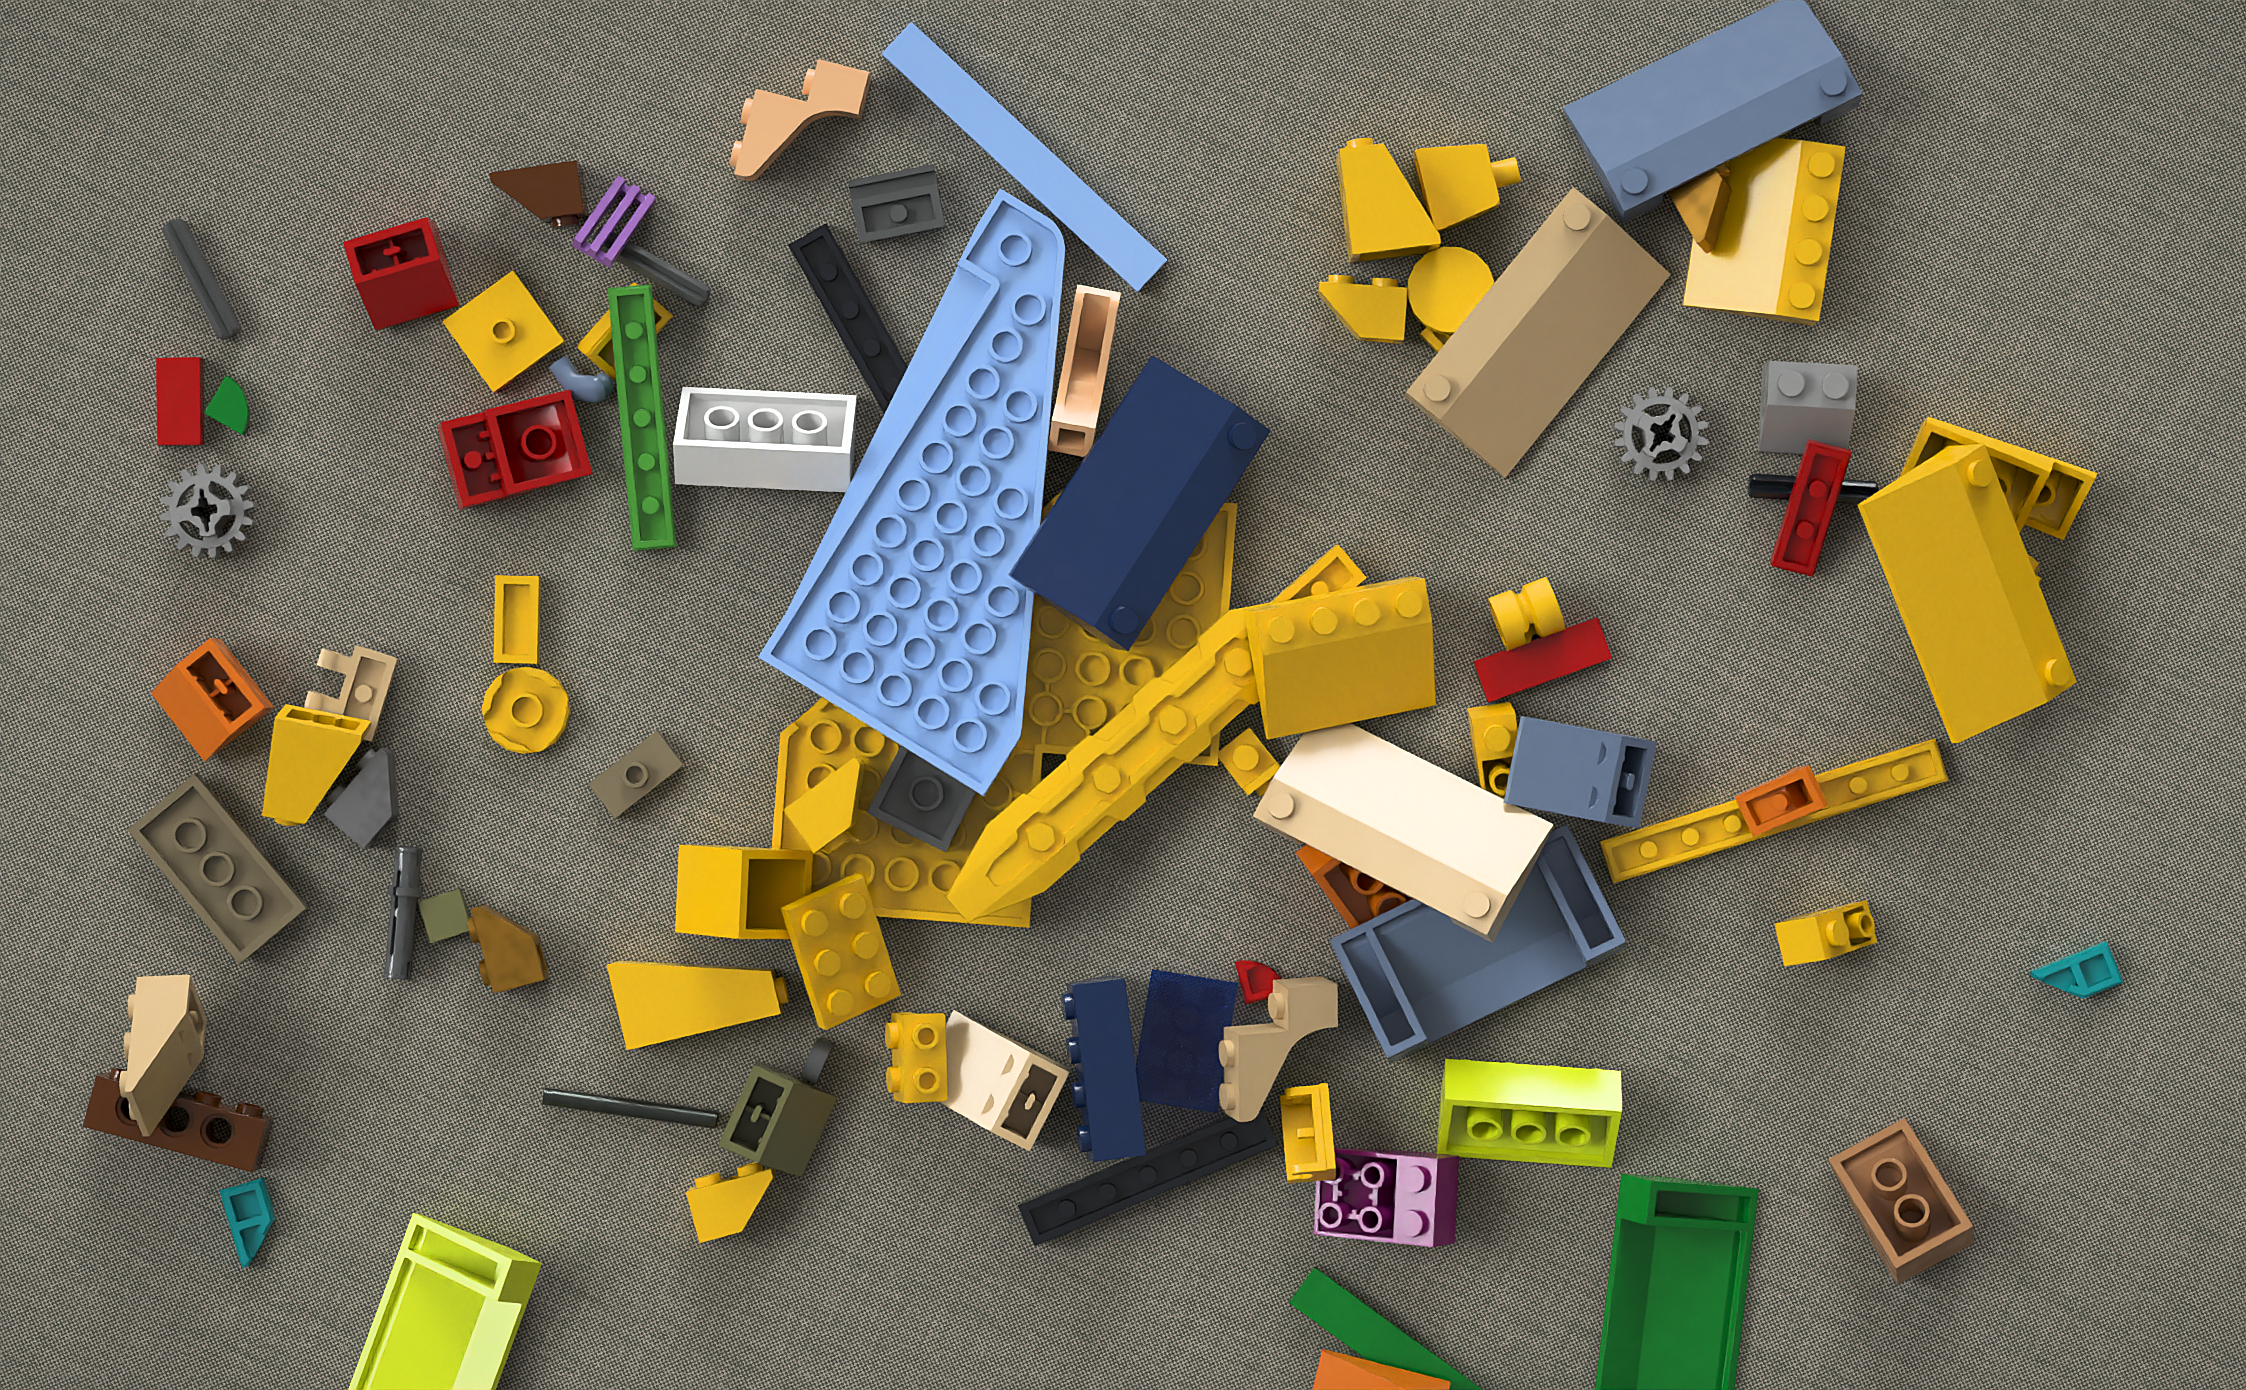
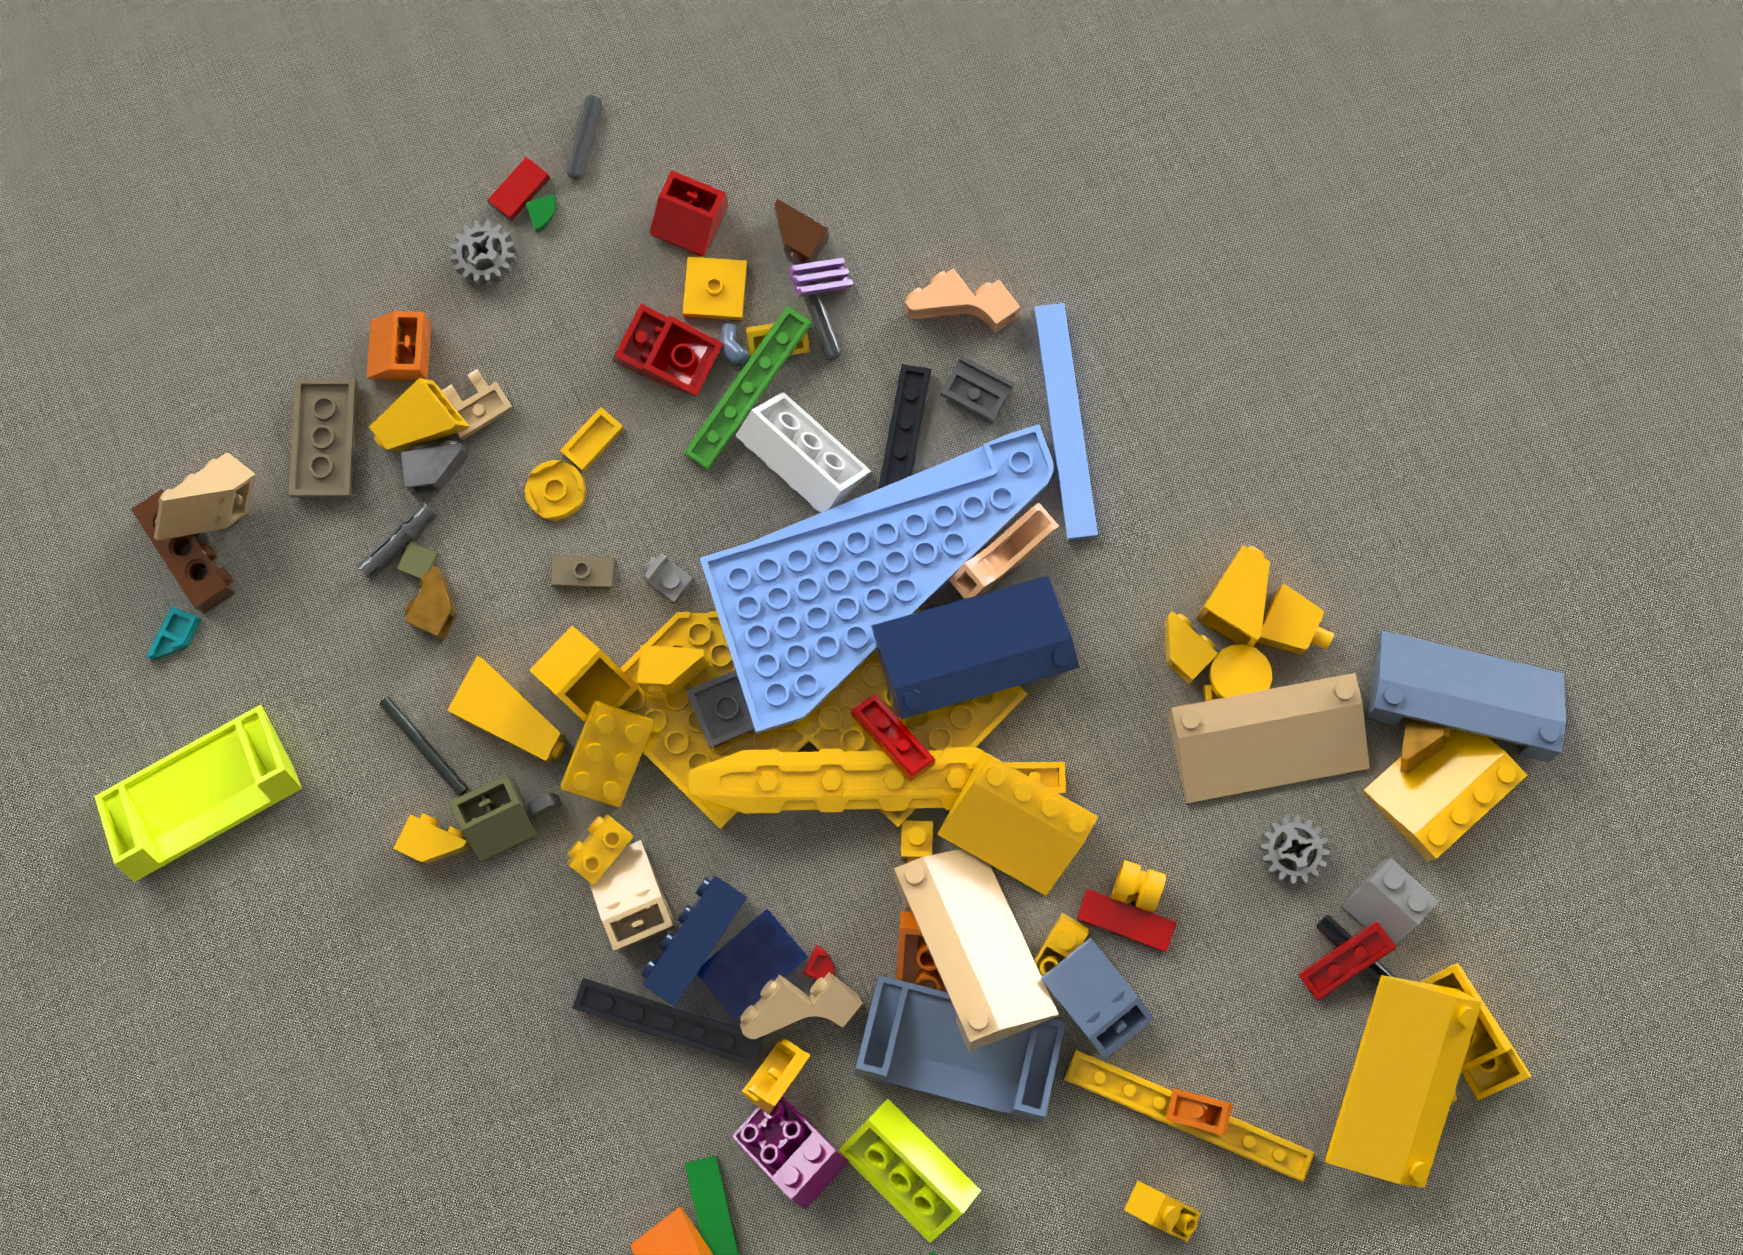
camera: 40 degrees right, 10 degrees down
(735, 704) = (666, 578): none -> light grey bracket
(1133, 675) = (893, 737): none -> red tile

